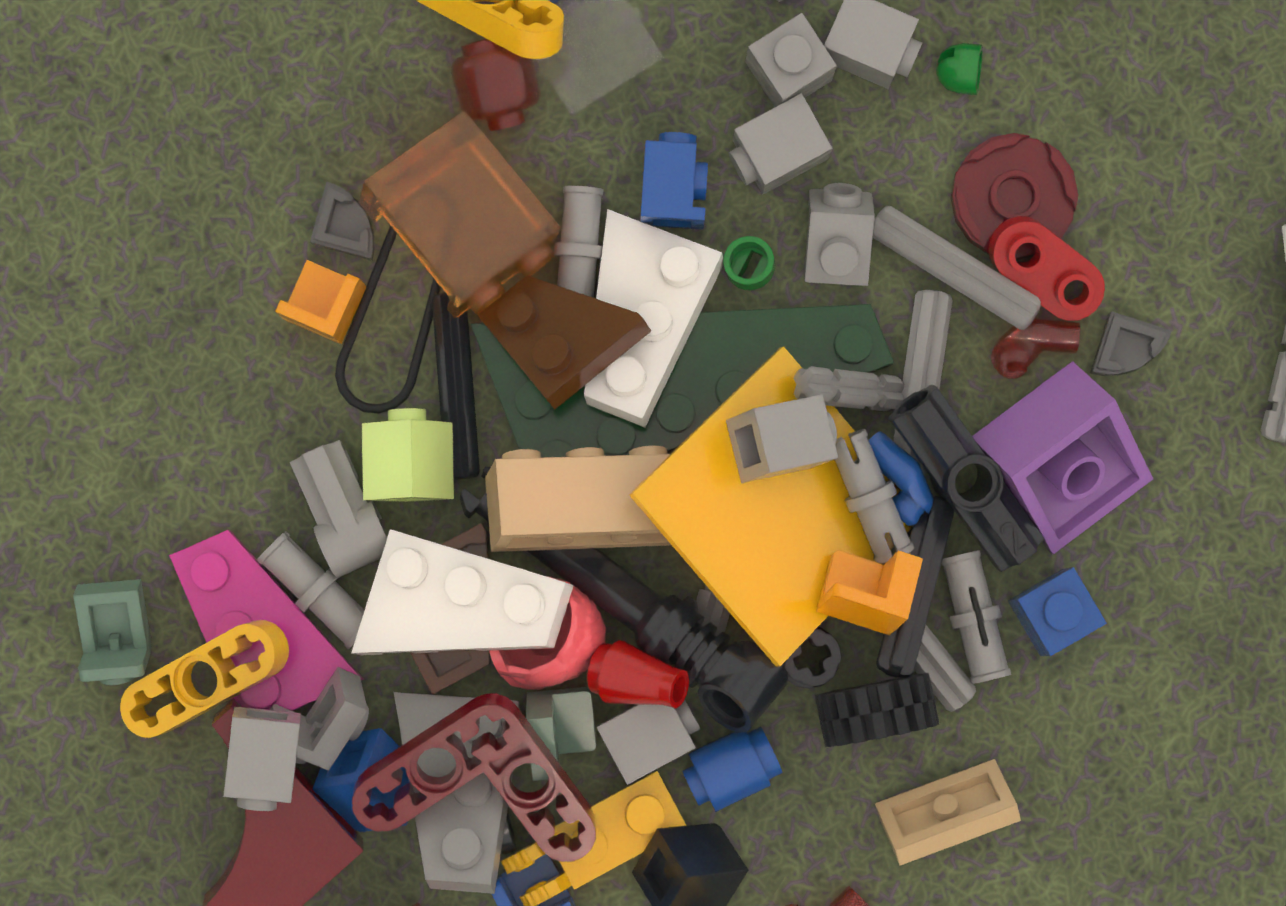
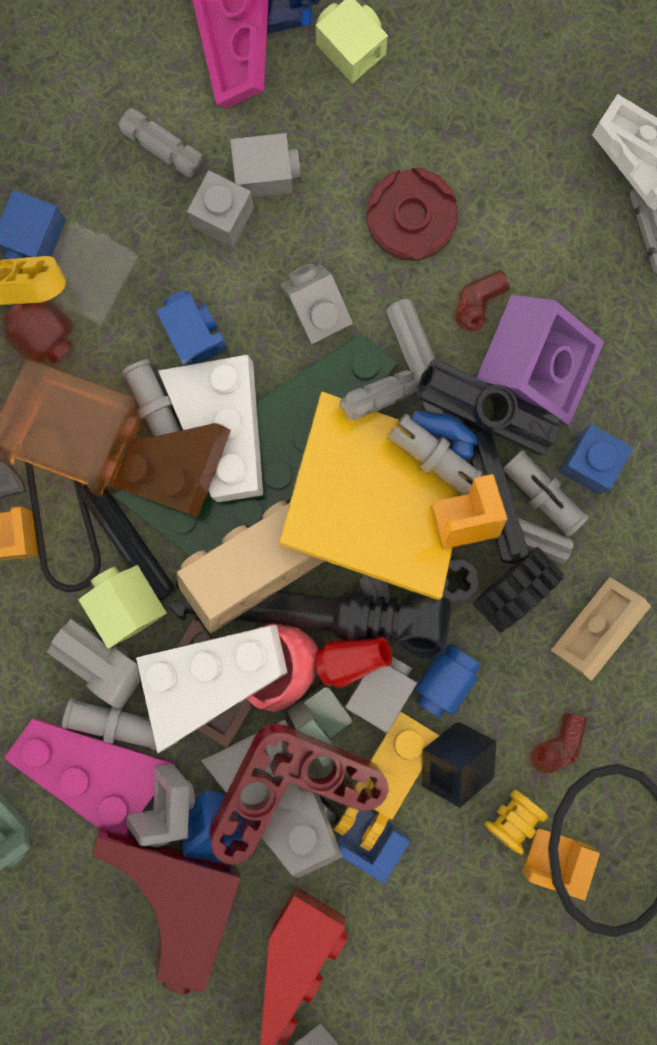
camera: 30 degrees left, 0 degrees up
(230, 679) = (88, 815): yellow beam -> none
(261, 757) = (136, 859): light grey brick -> none
(737, 260) = (260, 354): green hinge -> none
(779, 145) = (244, 265): light grey brick -> none
(782, 438) = (356, 449): light grey brick -> none
(956, 268) = (402, 279): light grey axle -> none
(961, 68) = (330, 152): green hinge -> none
(1049, 269) = (462, 246): red plate -> none
(1127, 345) = (538, 266): dark grey tile -> none

